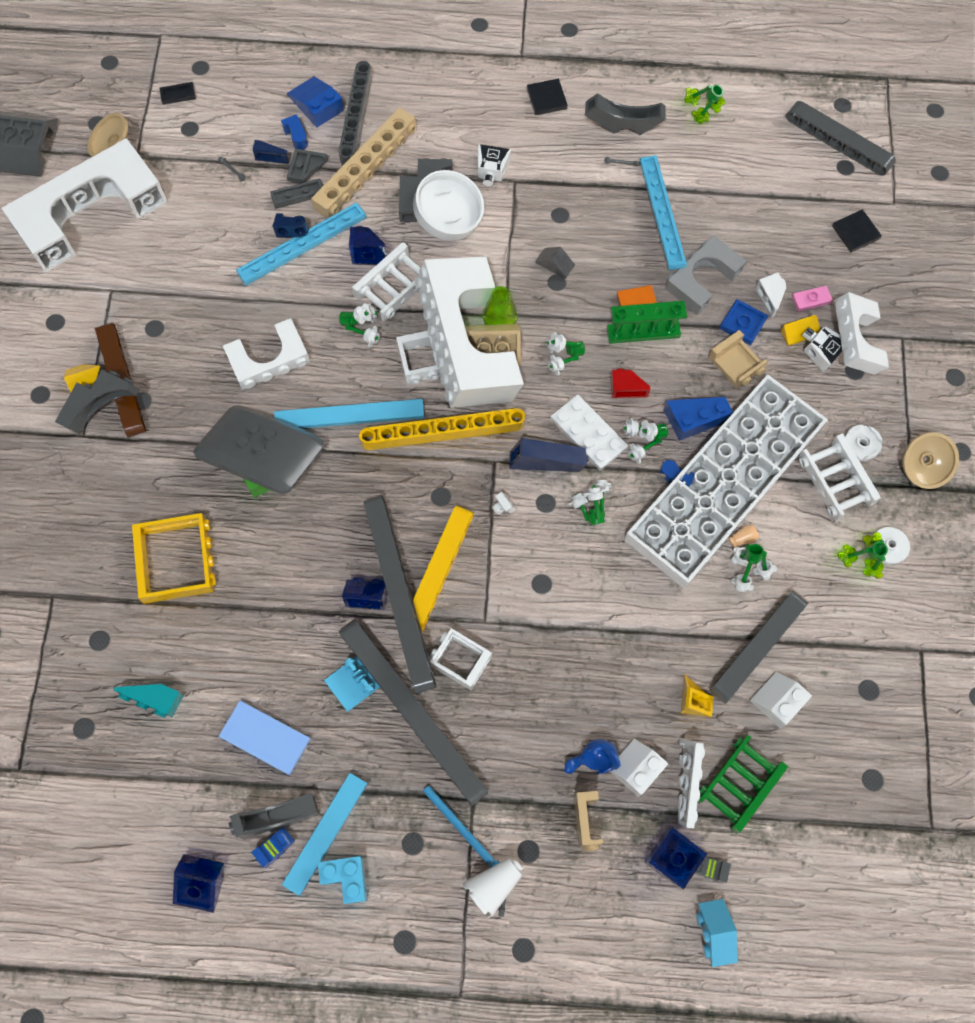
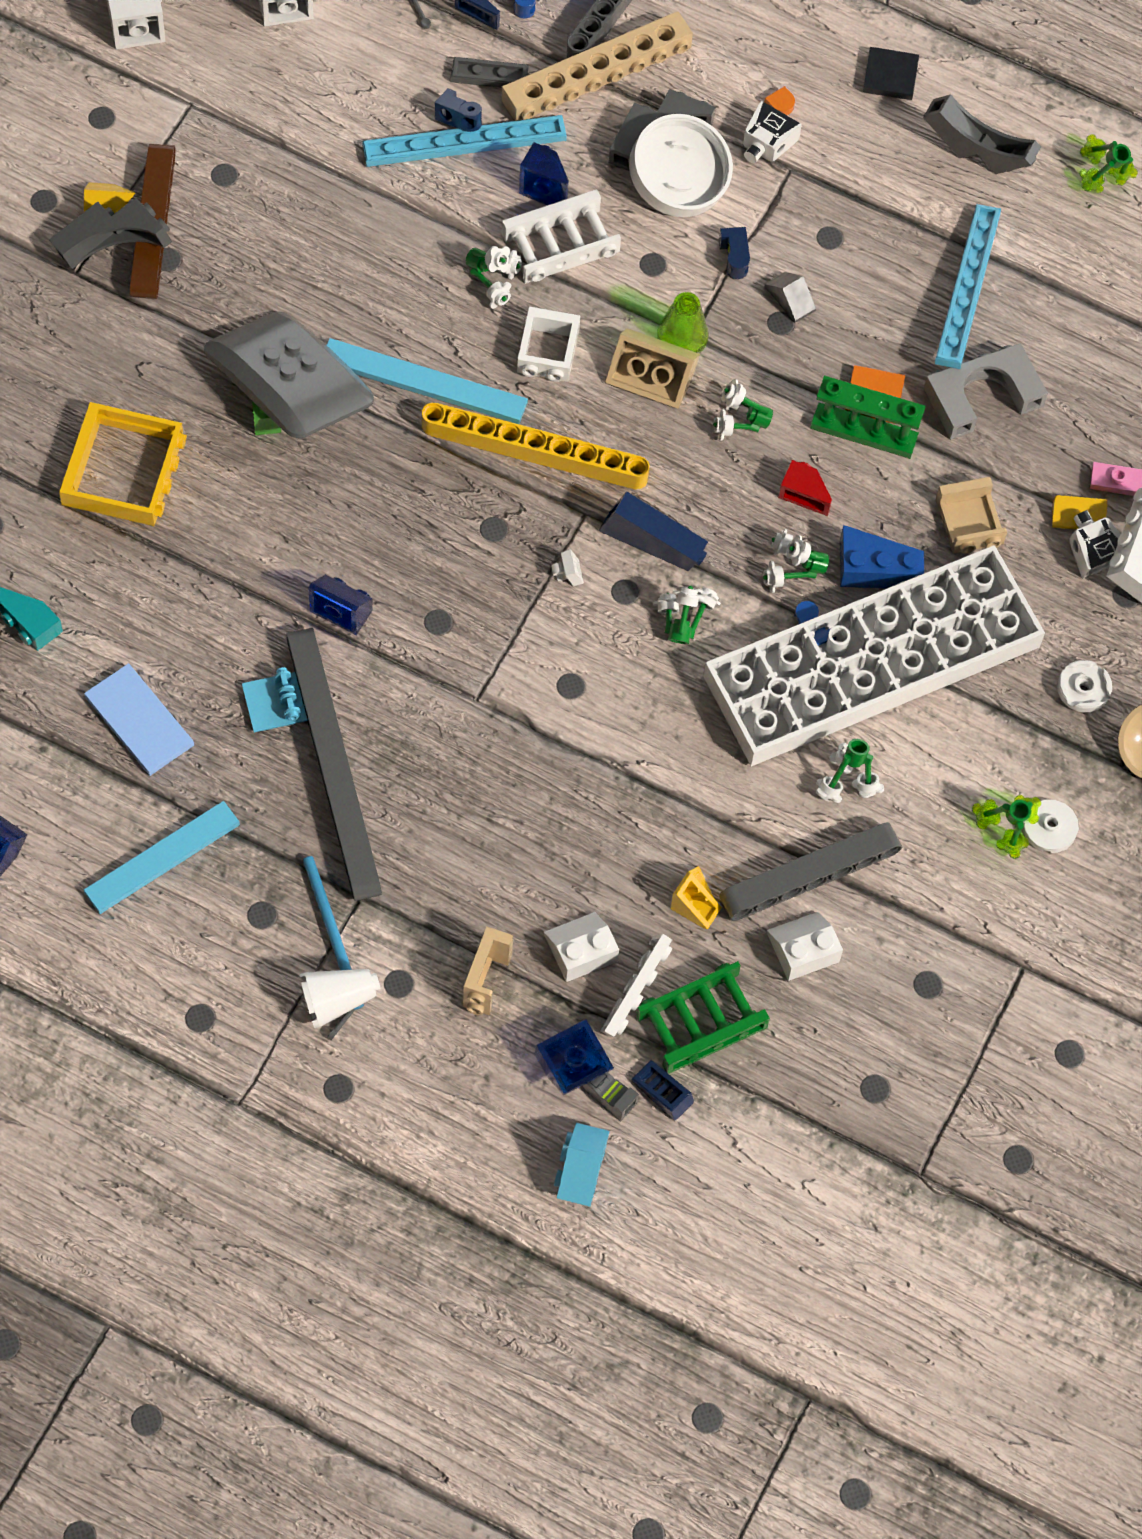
camera: 20 degrees right, 5 degrees down
(251, 373) = (383, 278): white arch -> none
(273, 818) = (109, 808): dark grey arch -> none
(273, 848) = (93, 845): blue leg -> none
(304, 165) = (516, 40): dark grey wing -> none
(349, 873) = (169, 910): medium azure brick -> none
(400, 595) = (382, 616): dark grey beam -> none
(441, 563) = (448, 611): yellow beam -> none
(466, 373) = (597, 387): white arch -> none
(479, 667) = (435, 750): white window -> none
(489, 138) = (781, 100): none -> orange tile
(509, 246) = (737, 248): none -> dark blue leg
(589, 431) = (727, 526): white plate -> none
(597, 755) = (537, 907): blue piece -> none
(607, 160) = (931, 190): dark grey hinge -> none
(744, 318) = (1009, 471): blue tile -> none
(744, 536) = (865, 731): light nougat cone -> none
(757, 854) = (675, 1103): none -> dark blue slope
(771, 292) = (1064, 448): white slope -> none
(848, 462) = (1049, 701): white fence -> none

